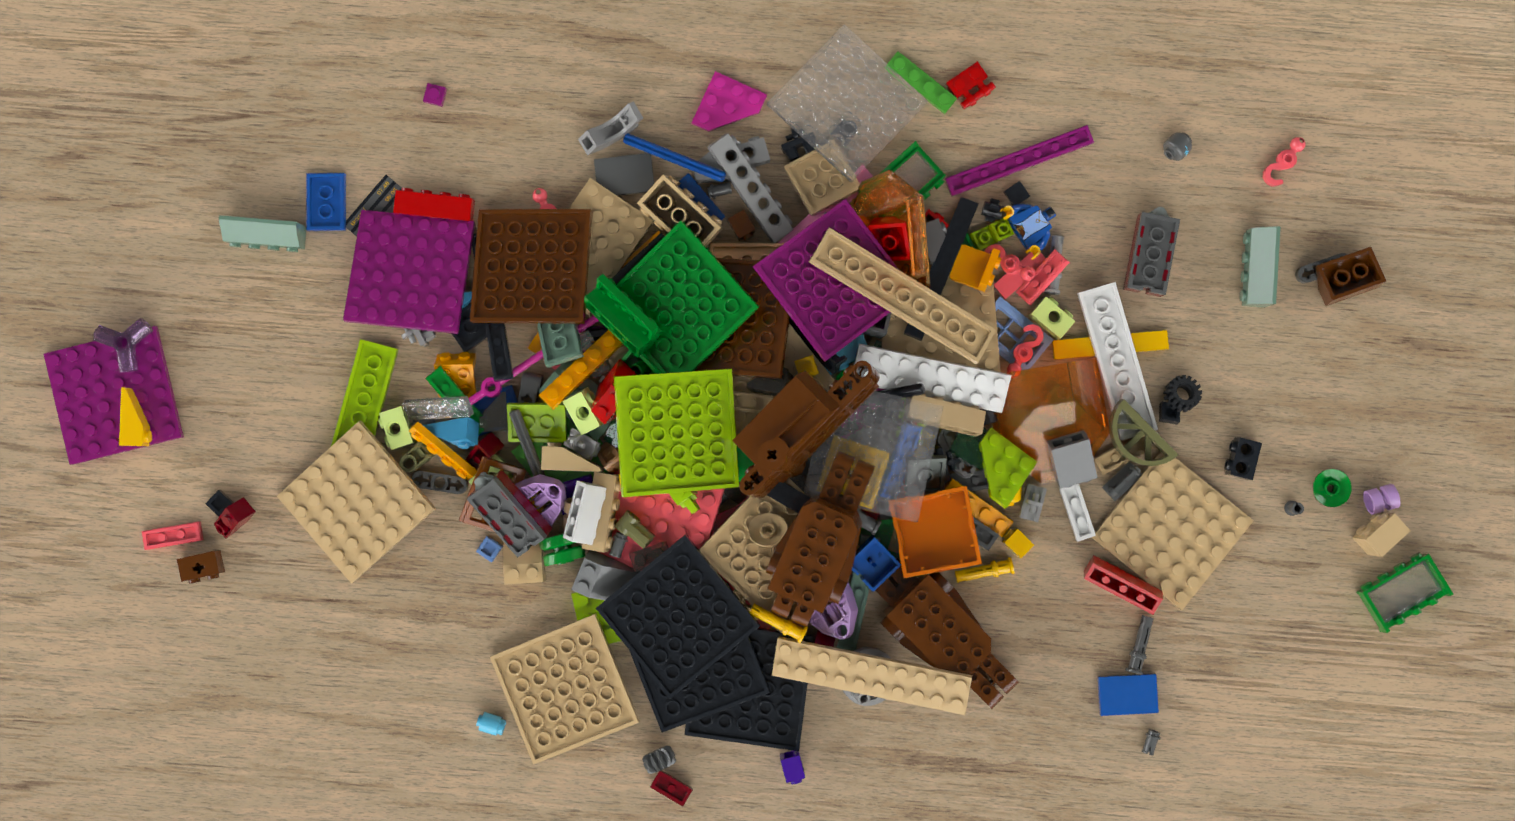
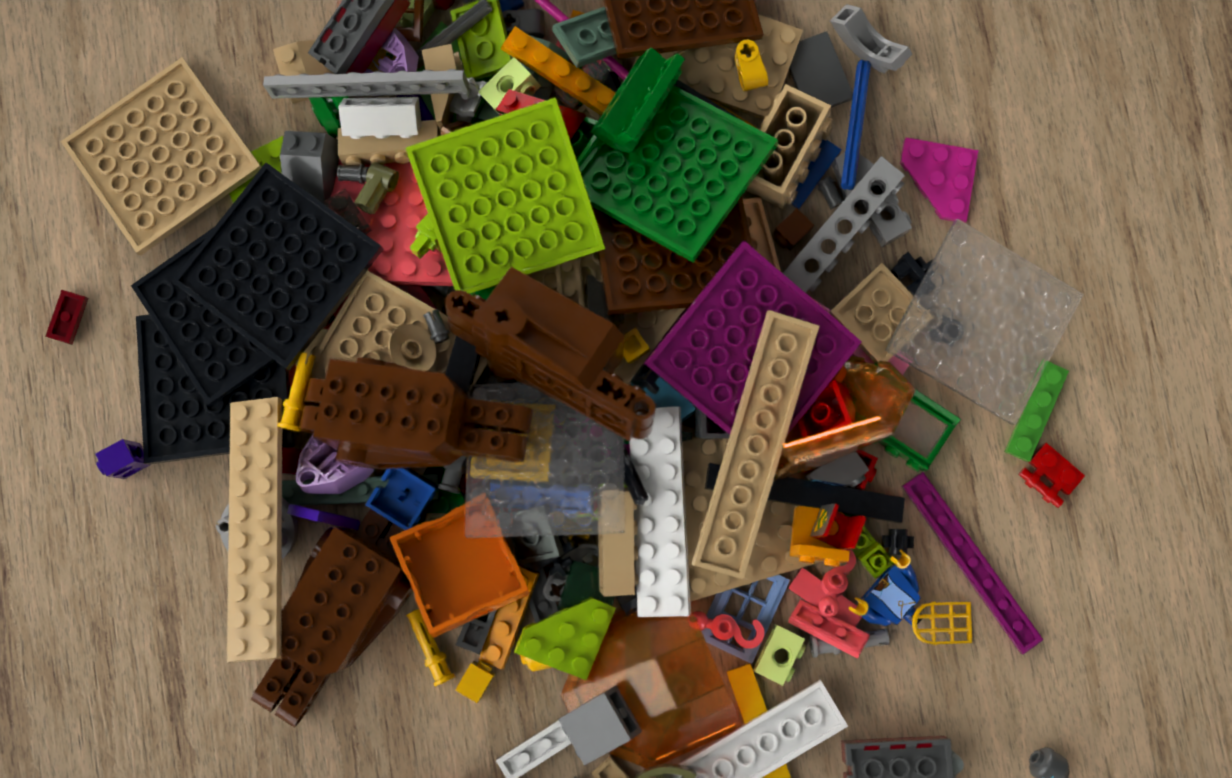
camera: 75 degrees right, 5 degrees down
(489, 548) = (313, 25): medium blue tile -> none
(491, 724) = (100, 79): medium azure brick -> none
(556, 524) = (366, 84): none -> light grey plate
(616, 225) = (750, 70): none -> yellow piece
(659, 759) = (97, 291): dark grey gear -> none
(755, 508) = (436, 327): none -> dark grey pin
(873, 625) = (324, 517): none -> dark purple tile
(979, 246) = (848, 527): none -> red piece
(1016, 193) = (928, 569): black tile -> none
(1032, 503) = (531, 688): light grey hips -> none
(1055, 187) = (950, 616): none -> yellow window

